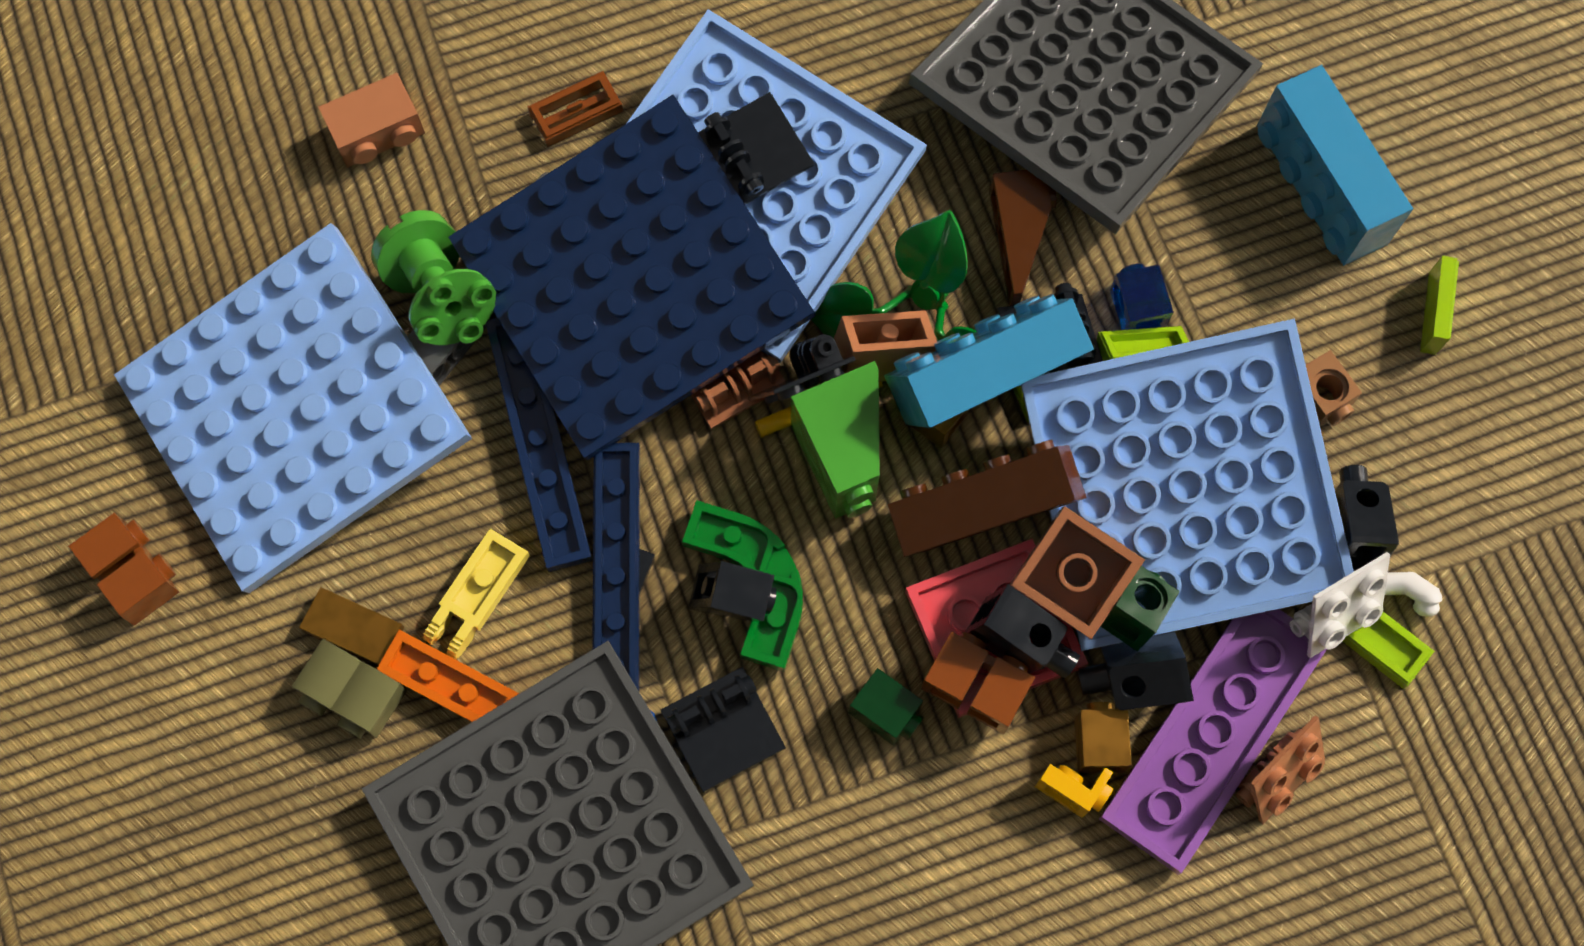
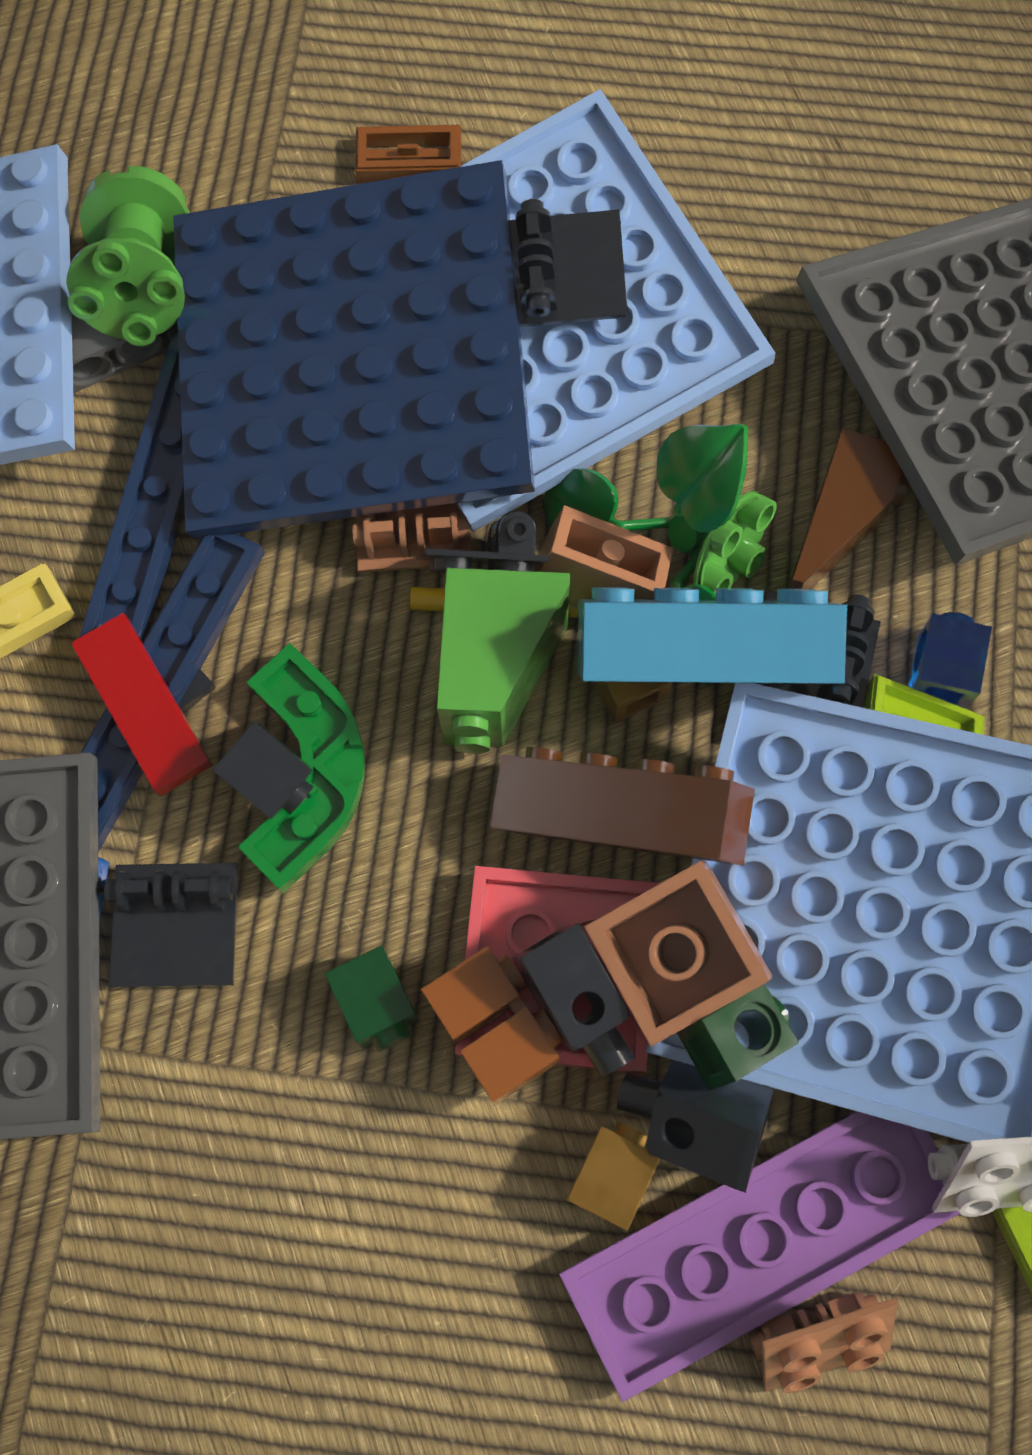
camera: 30 degrees right, 0 degrees up
(372, 120) = (179, 67): nougat brick -> none
(620, 591) = (141, 704): none -> red tile
(967, 295) = (735, 546): none -> bright green dish
(1067, 789) = (538, 1212): yellow bracket -> none

